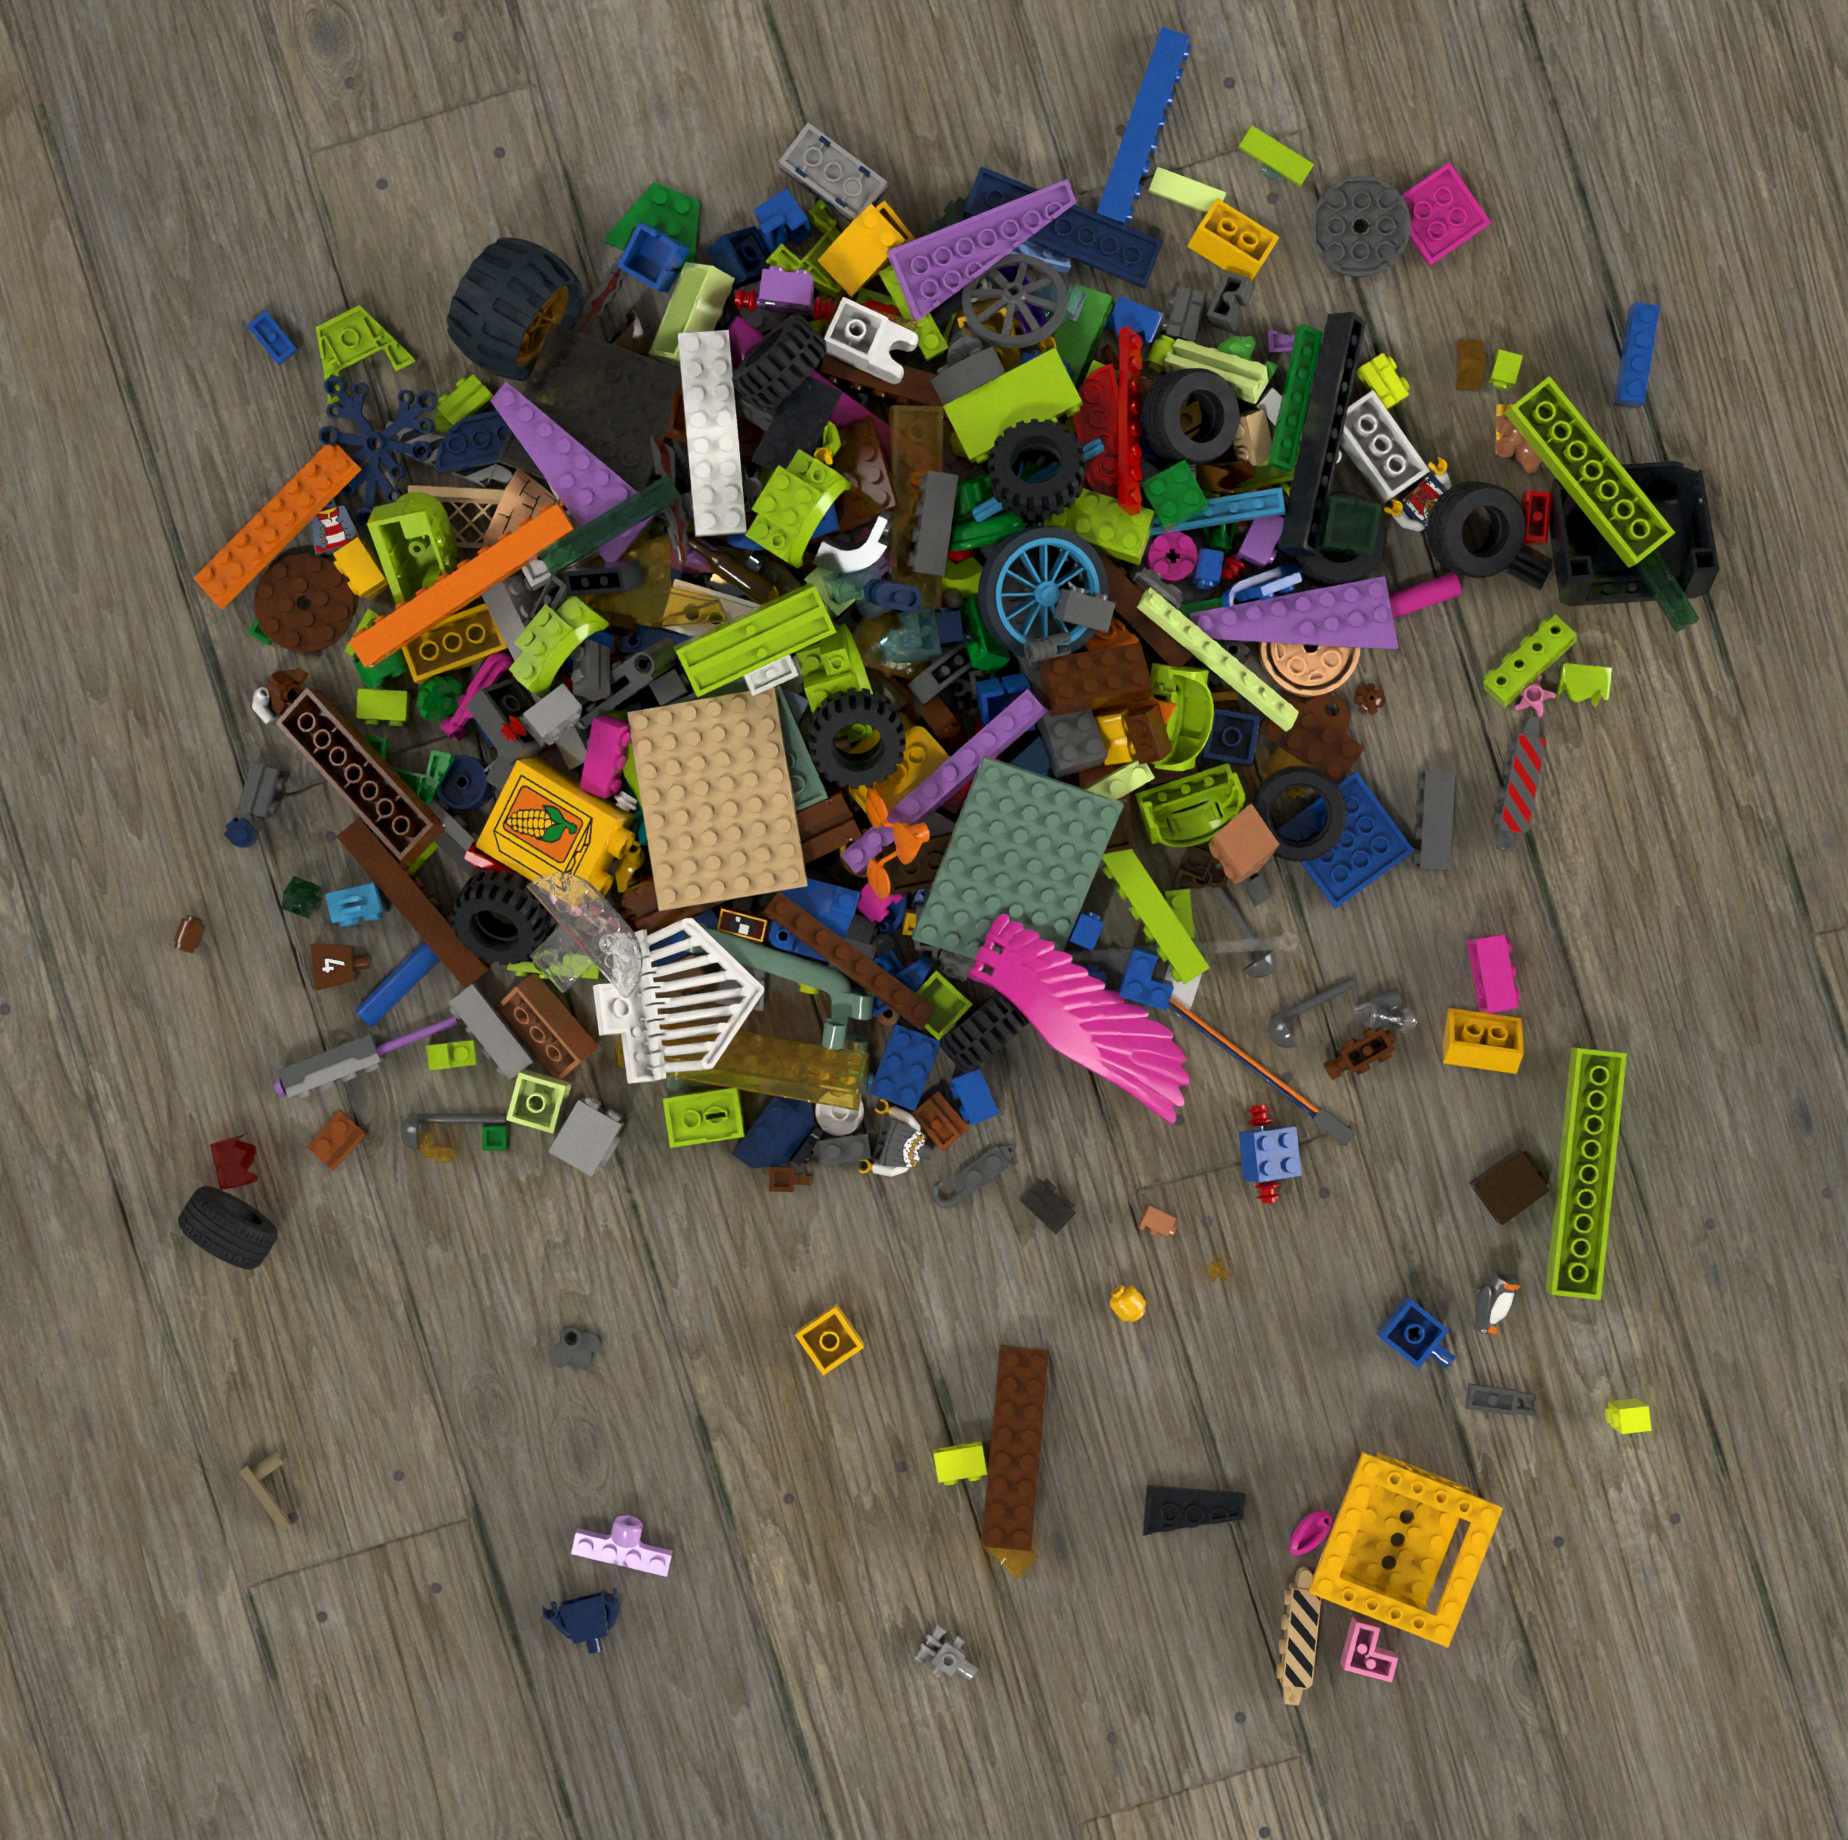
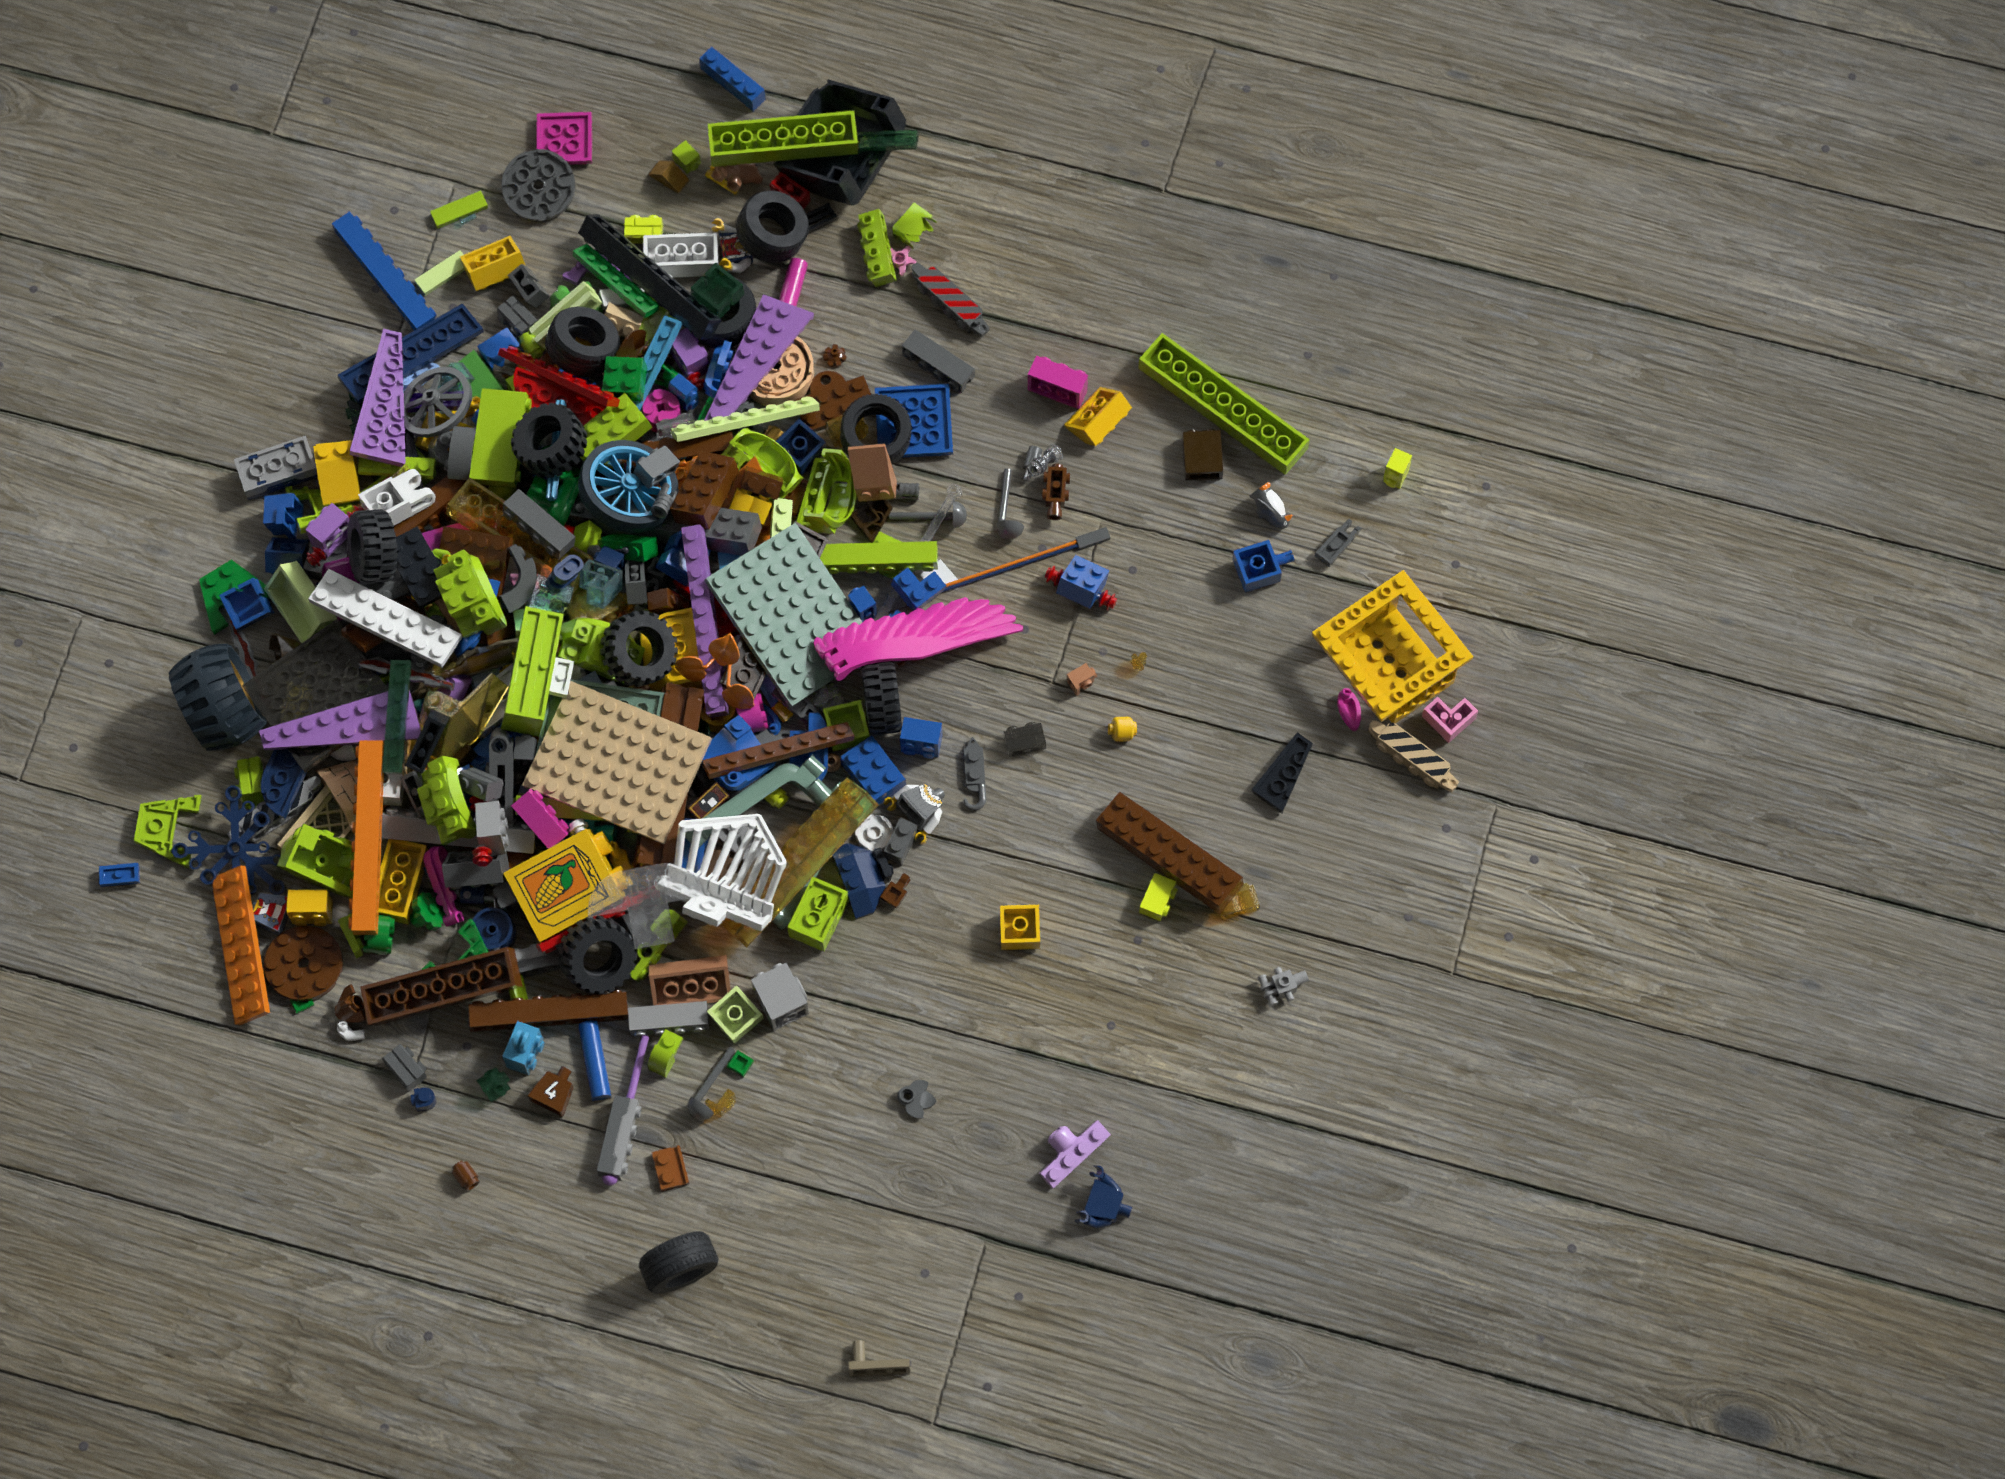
camera: 55 degrees left, 20 degrees down
(232, 1161) = (636, 1241): clear red piece -> none
(383, 706) = (407, 953): lime brick -> none
(940, 1121) = (924, 771): dark orange plate -> none

